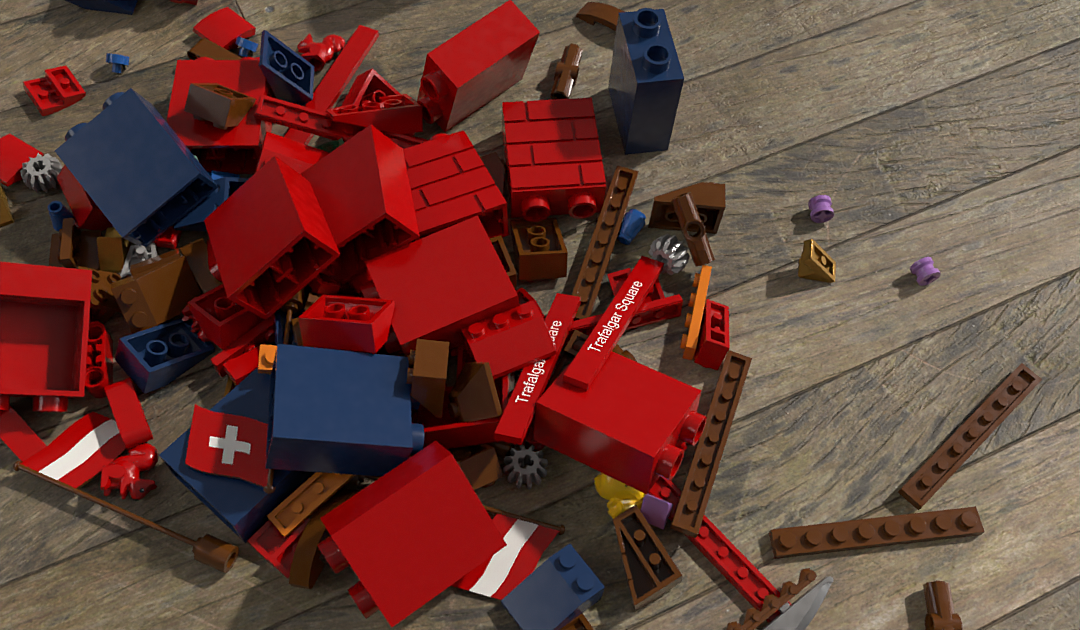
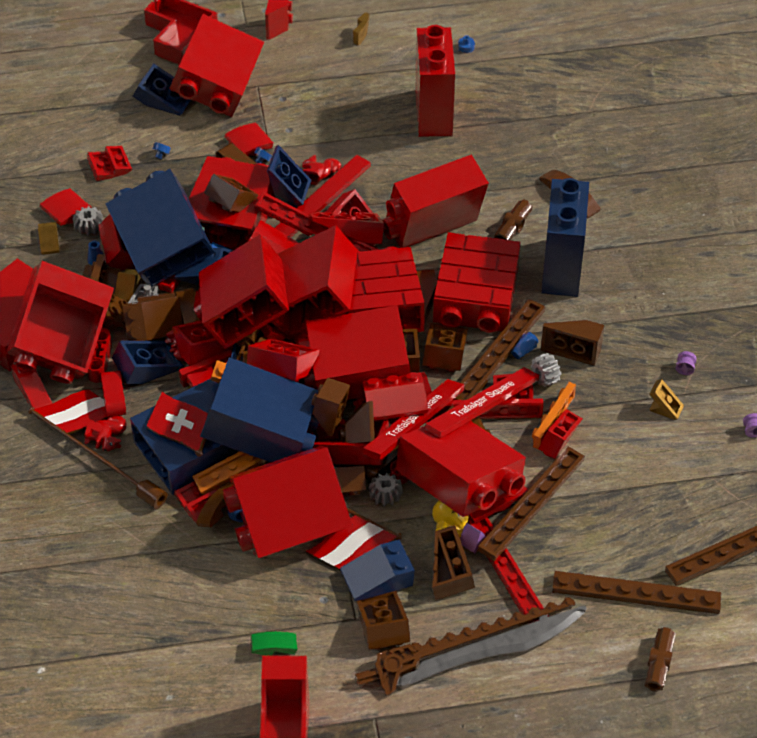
camera: 20 degrees right, 10 degrees down
(687, 215) = (565, 339): reddish brown piece -> none

